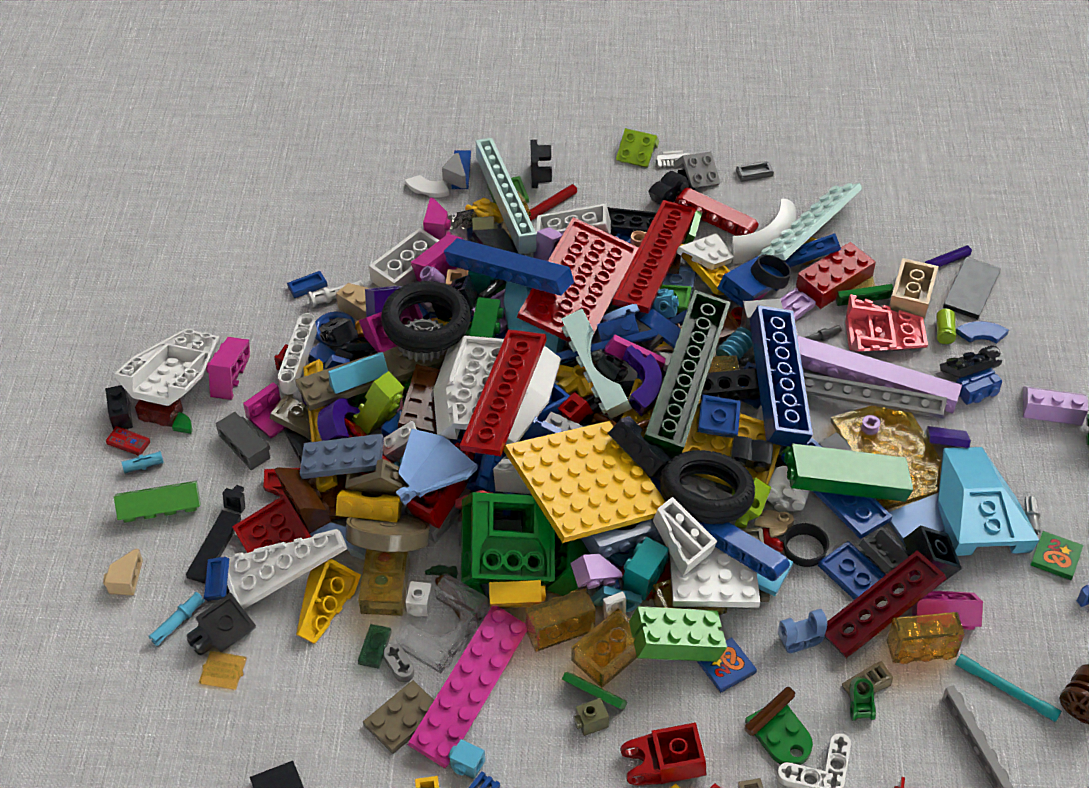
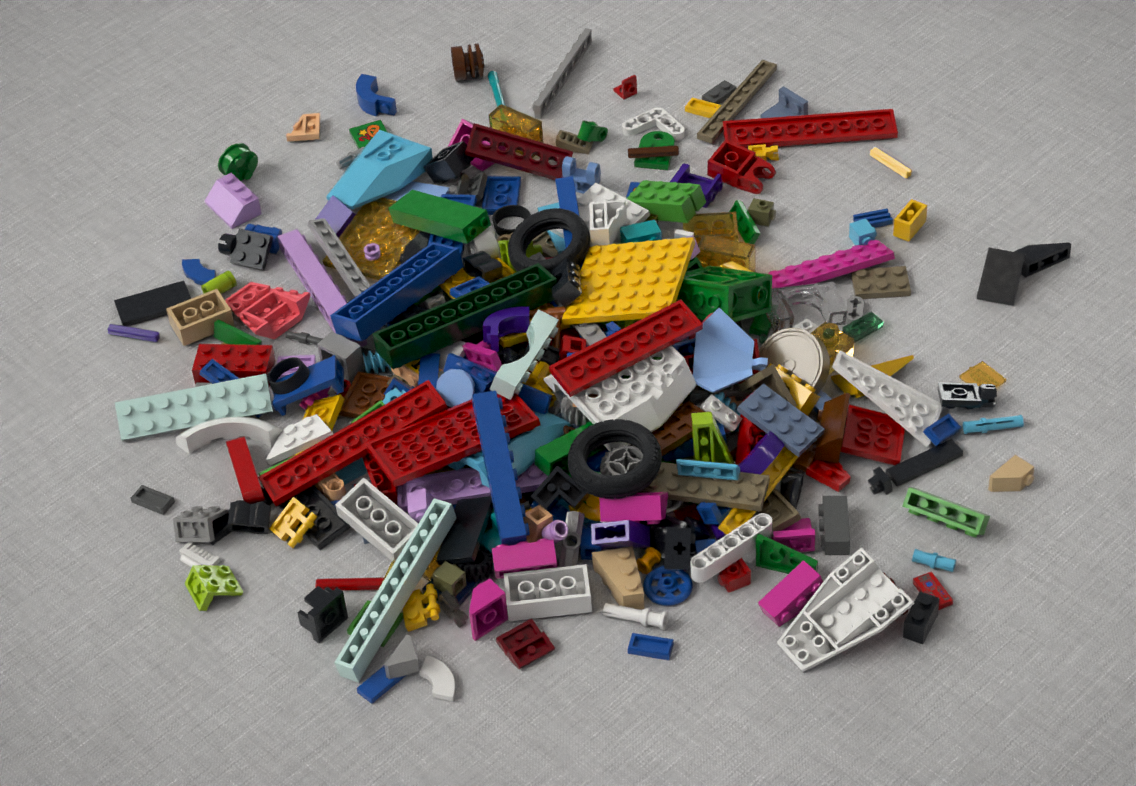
camera: 135 degrees left, 5 degrees down
(249, 387) = (779, 557): none -> green wing
(391, 233) = (524, 644): none -> dark red slope
(638, 203) = (289, 520): none -> yellow plate
(690, 705) = (709, 186): none -> dark purple panel

